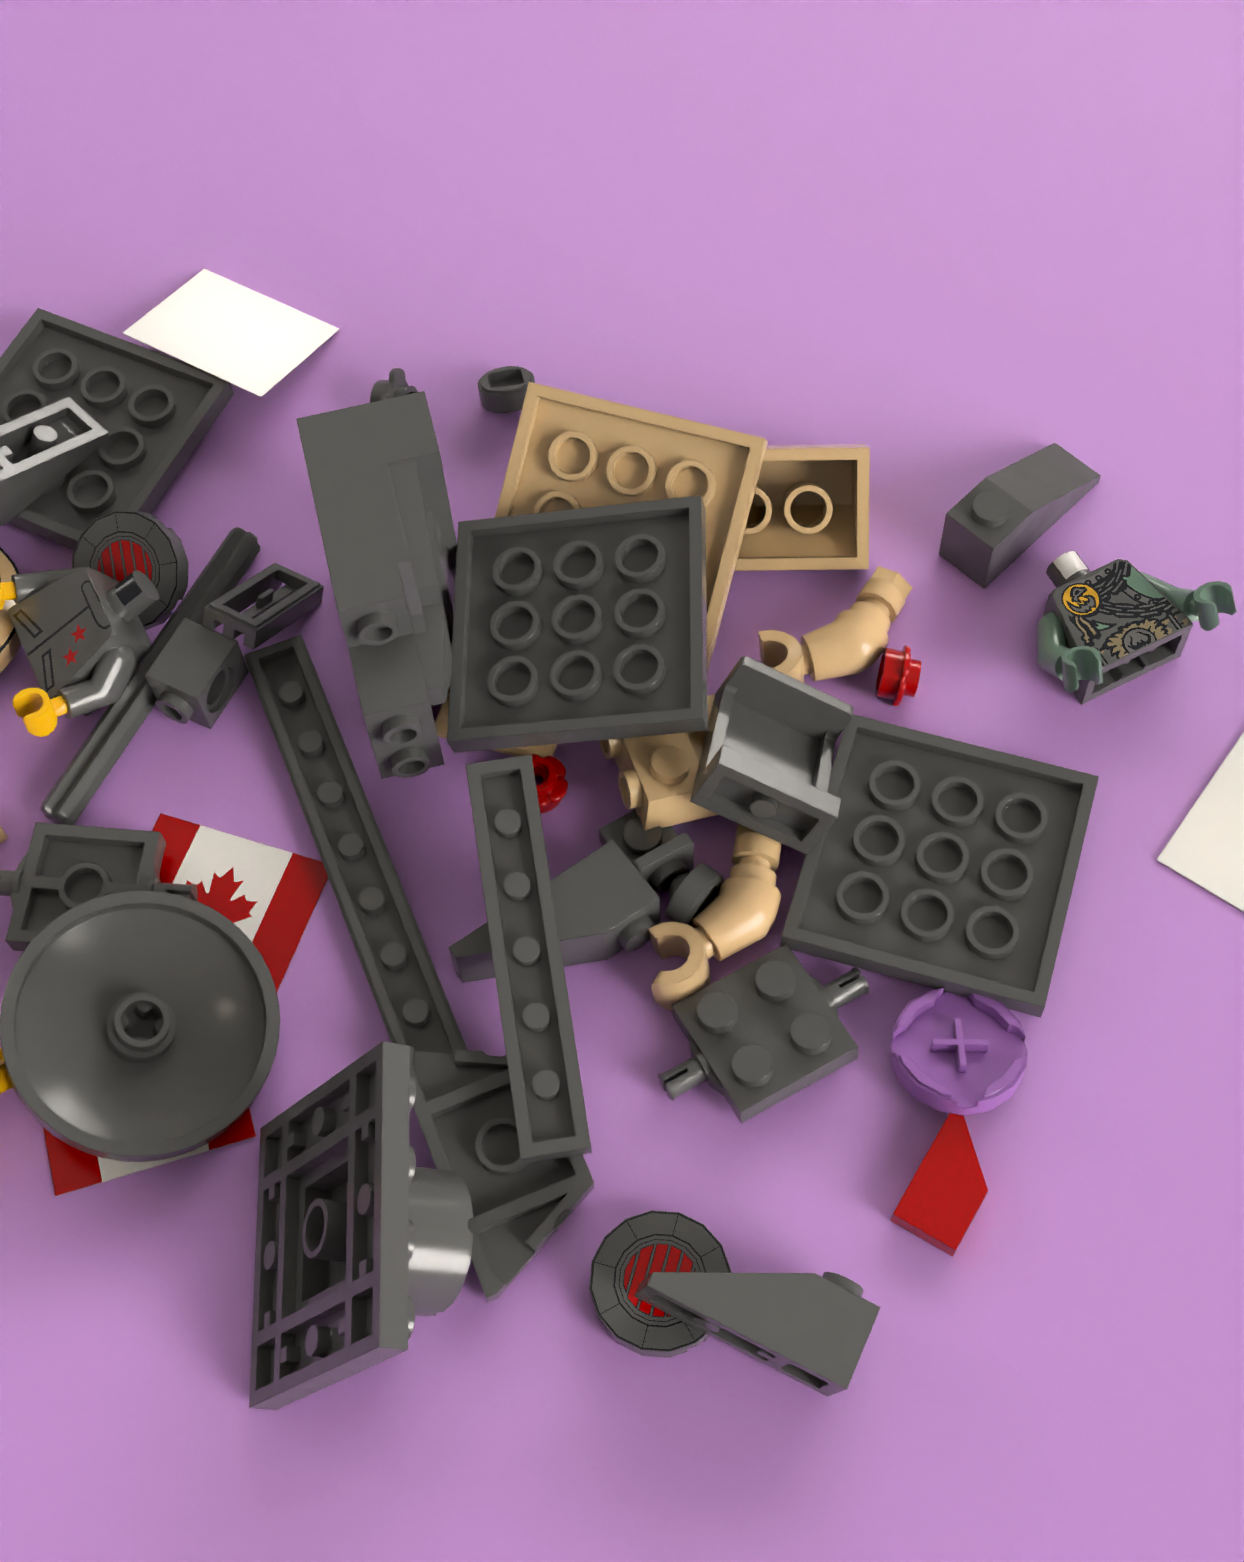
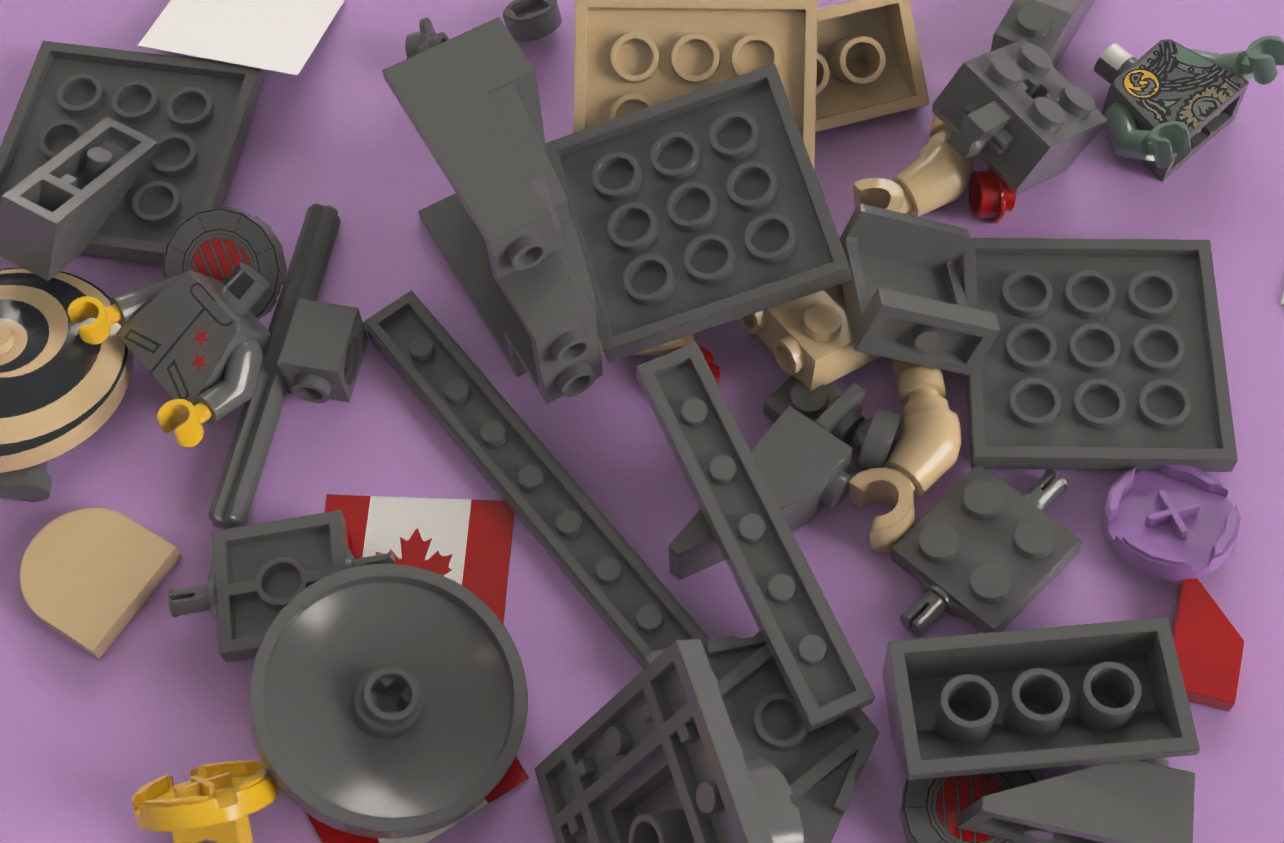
camera: 15 degrees left, 0 degrees up
(273, 609) = (380, 271): dark grey tile -> none
(749, 1192) = (1037, 699): none -> dark grey slope
(939, 603) = (1018, 115): none -> dark grey hinge

